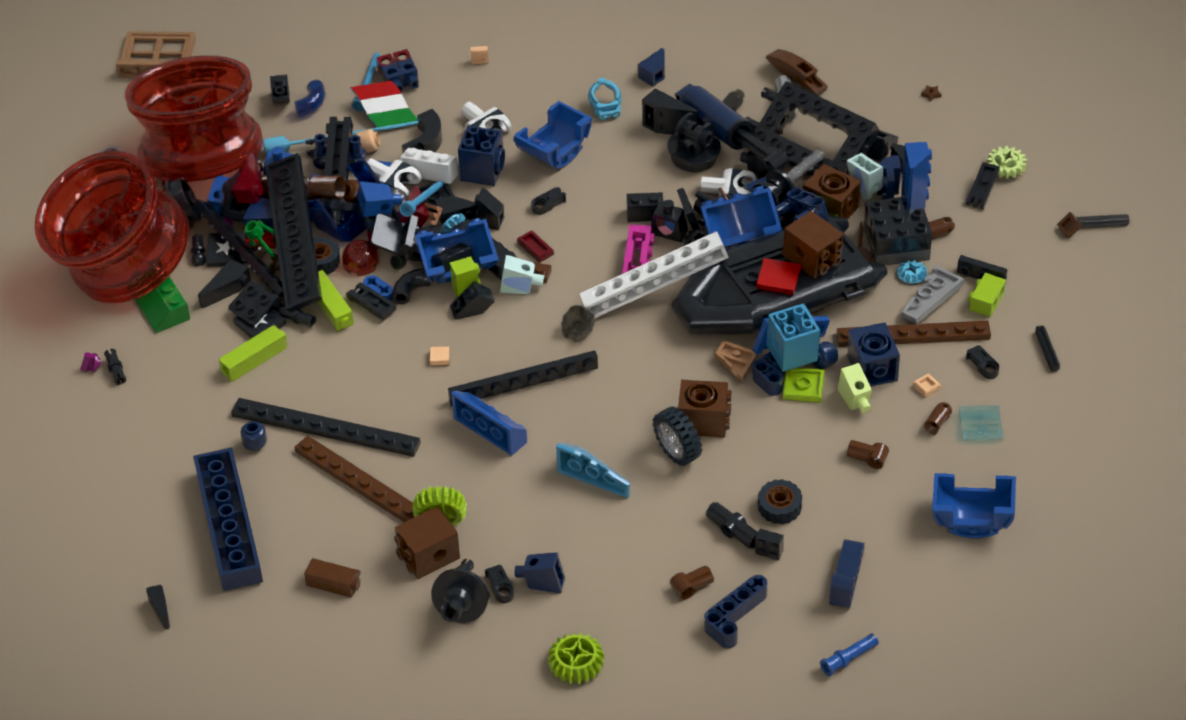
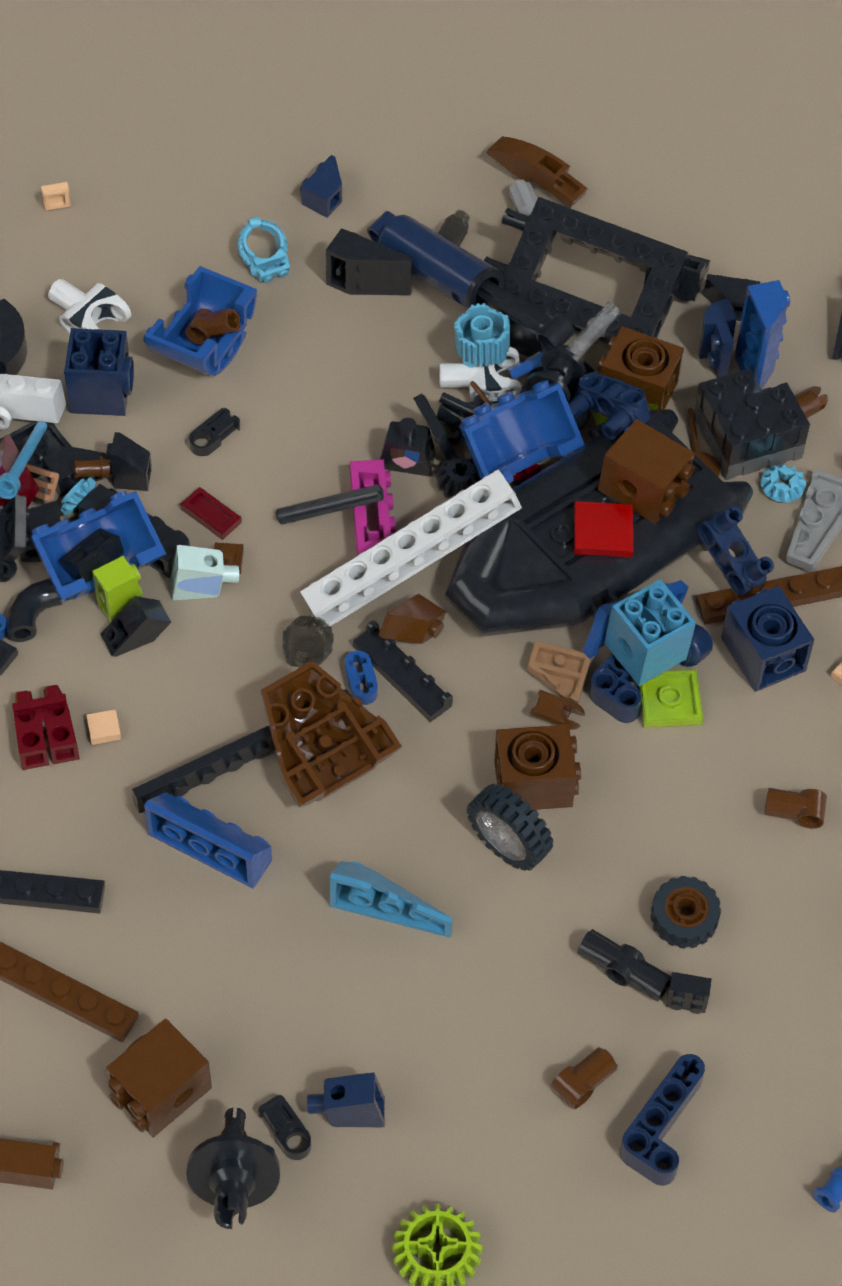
camera: 15 degrees left, 10 degrees up
(400, 344) = (40, 717): none -> dark red hips
(446, 499) = (179, 1002): lime gear -> none
(465, 209) = (91, 468): none -> reddish brown pin
(561, 136) = (212, 324): none -> reddish brown piece
(573, 371) = (322, 734): none -> reddish brown wedge
(603, 348) = (366, 676): none -> blue beam
(610, 247) = (330, 504): none -> black axle
(635, 348) = (403, 673): none -> black hinge
(642, 206) = (362, 425): black piece -> none
(647, 318) = (413, 621): none -> reddish brown slope
(693, 145) = (414, 314): black piece -> none
(725, 376) = (556, 710): none -> reddish brown piece
(731, 161) = (482, 336): none -> medium azure brick
(846, 575) = (816, 1026): dark blue beam -> none
(855, 388) = (753, 700): yellowish green torso -> none
(857, 290) = (722, 533): none -> dark blue piece
(868, 172) = (686, 330): light aqua torso -> none
(931, 93) = (737, 180): reddish brown piece -> none

